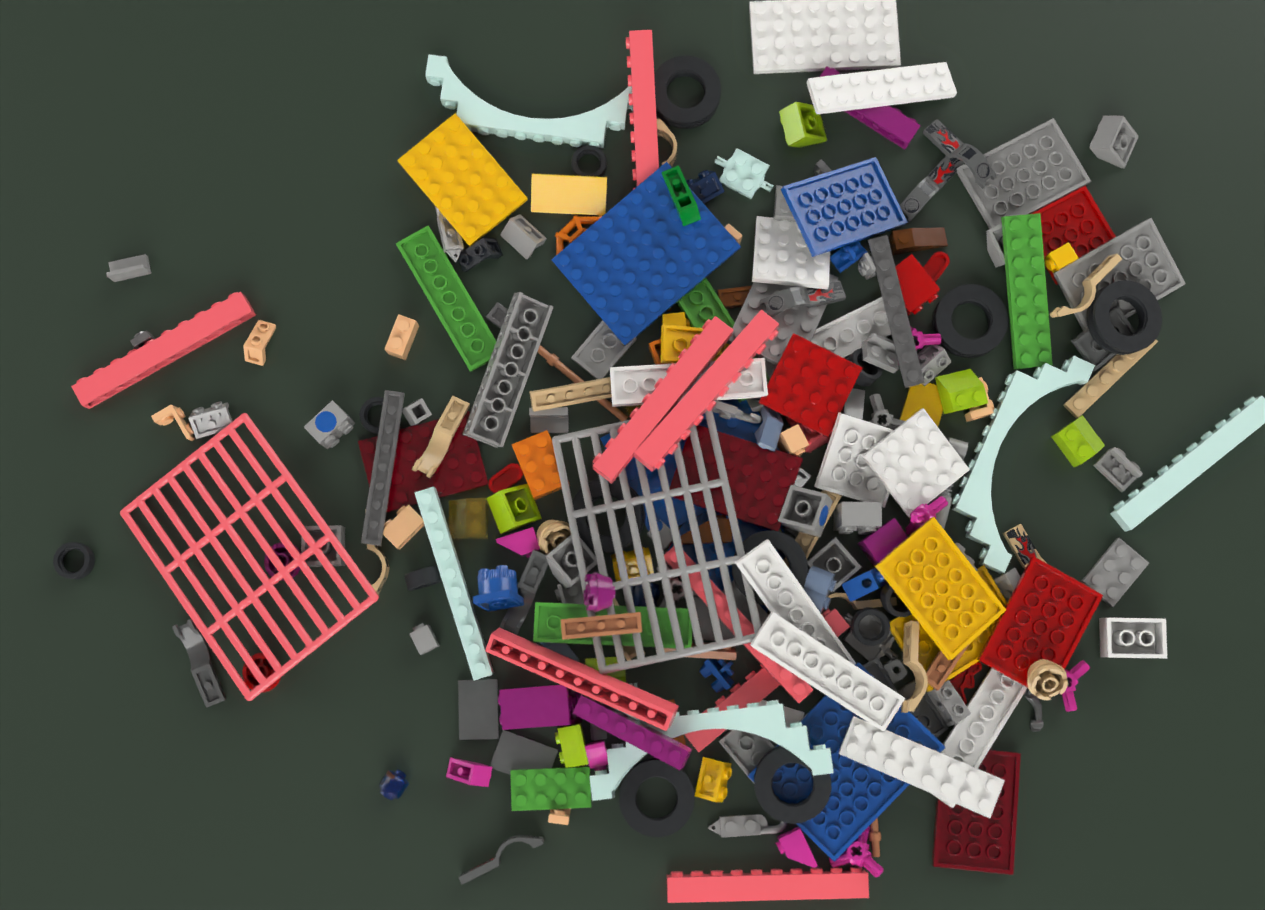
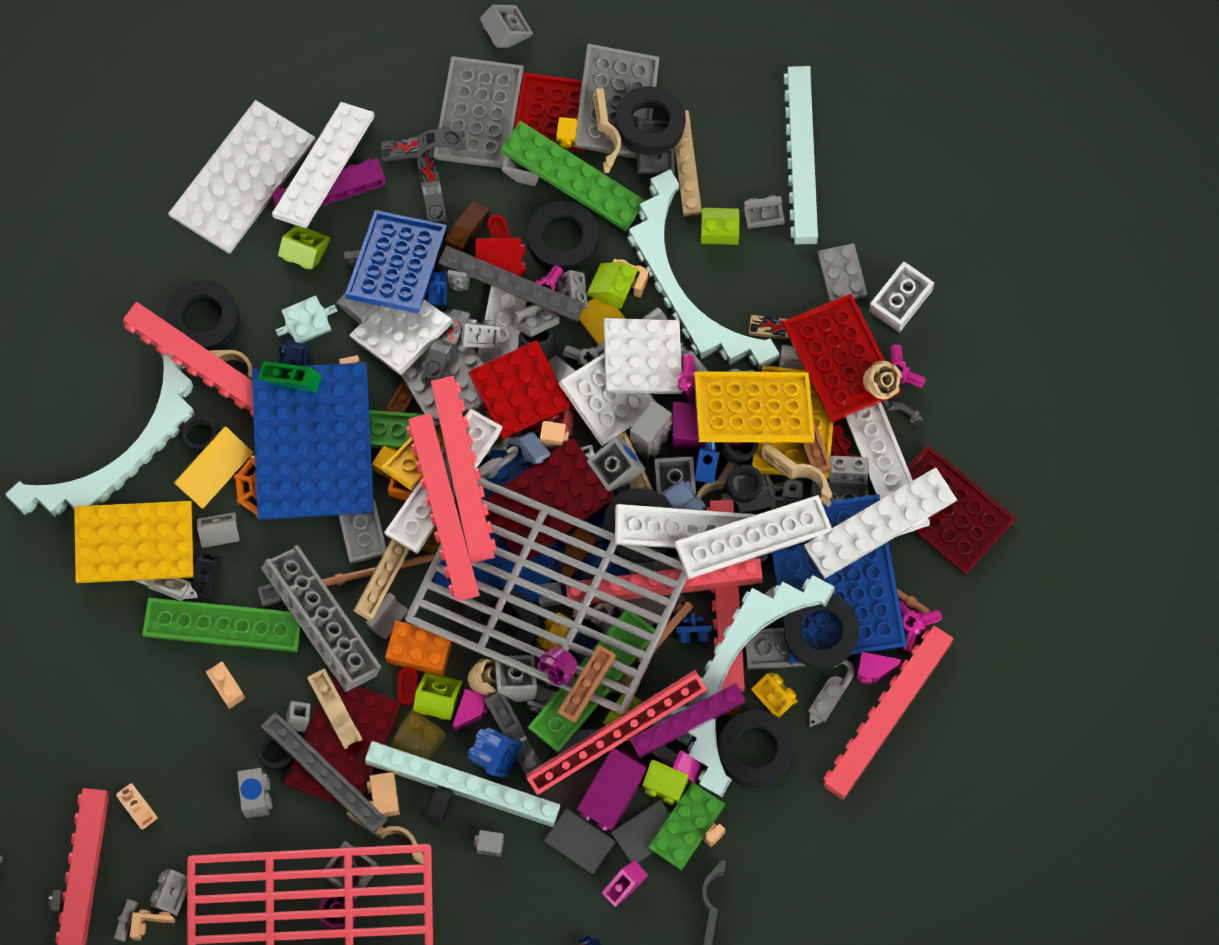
camera: 50 degrees left, 10 degrees down
(165, 401) = (125, 920): none -> light grey pin
(834, 317) = (480, 334): none -> light grey bracket

